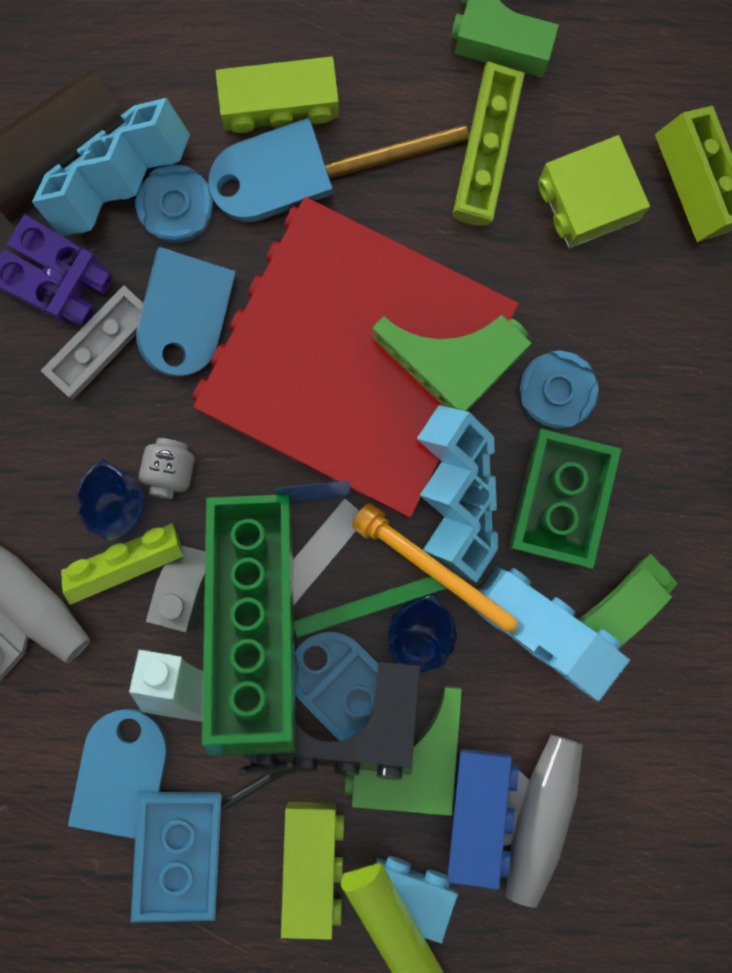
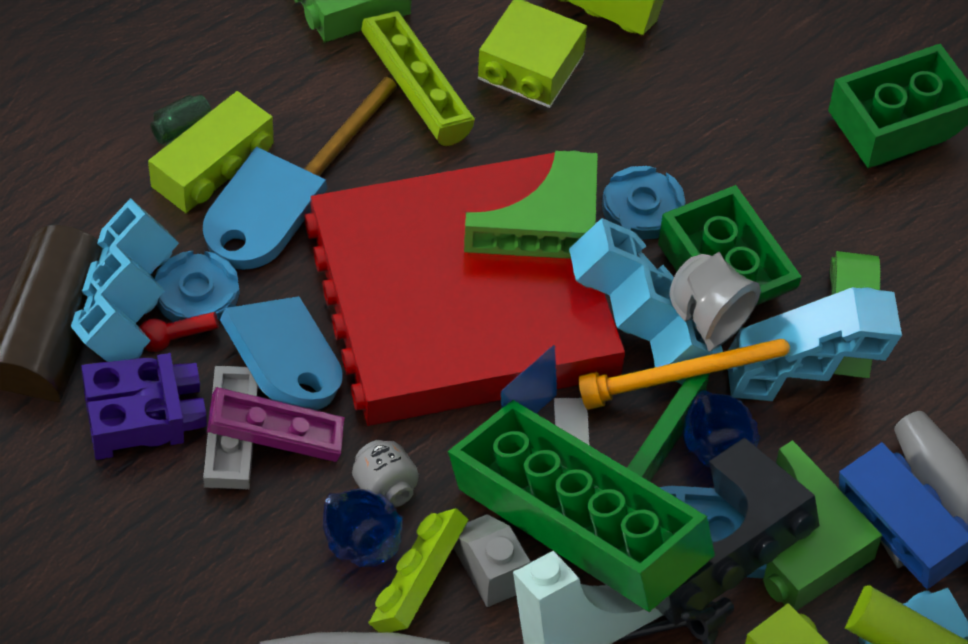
camera: 40 degrees left, 30 degrees down
(117, 221) = (162, 333): none -> red bar
(123, 368) = (276, 424): none -> magenta tile
(278, 45) = (178, 117): none -> clear green brick
(498, 538) = (714, 297): none -> light grey helmet

